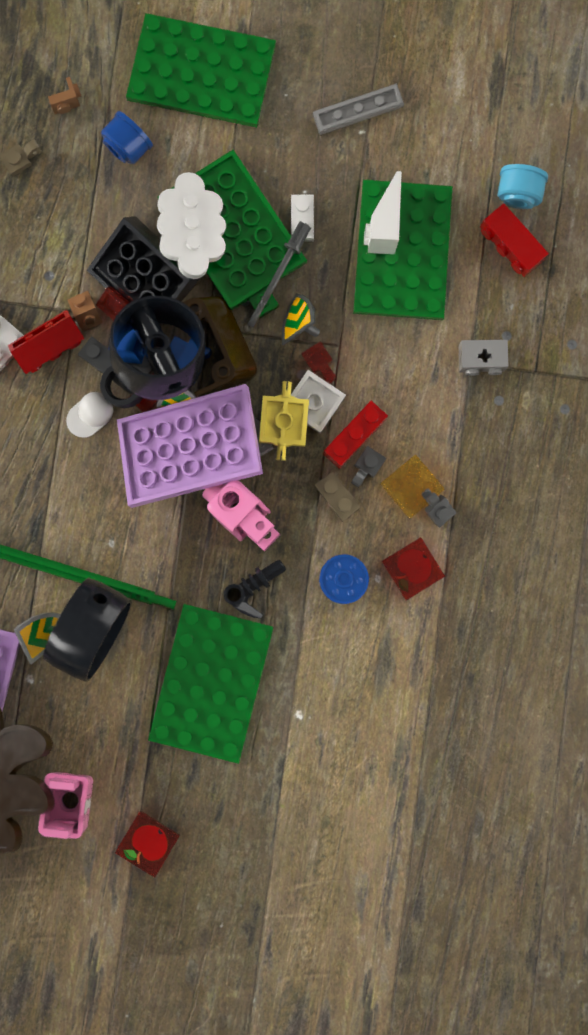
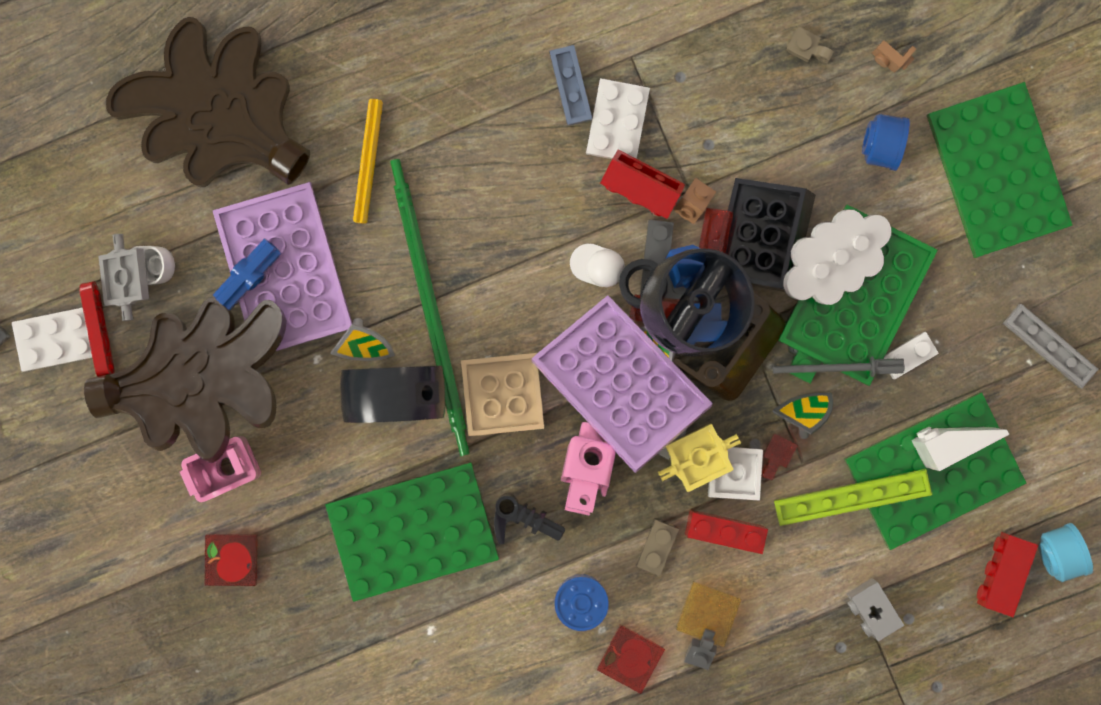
camera: 65 degrees right, 5 degrees up
(145, 547) = (502, 394): none -> tan plate
(369, 464) = (706, 559): dark grey plate -> none
(385, 322) = (853, 497): none -> lime tile

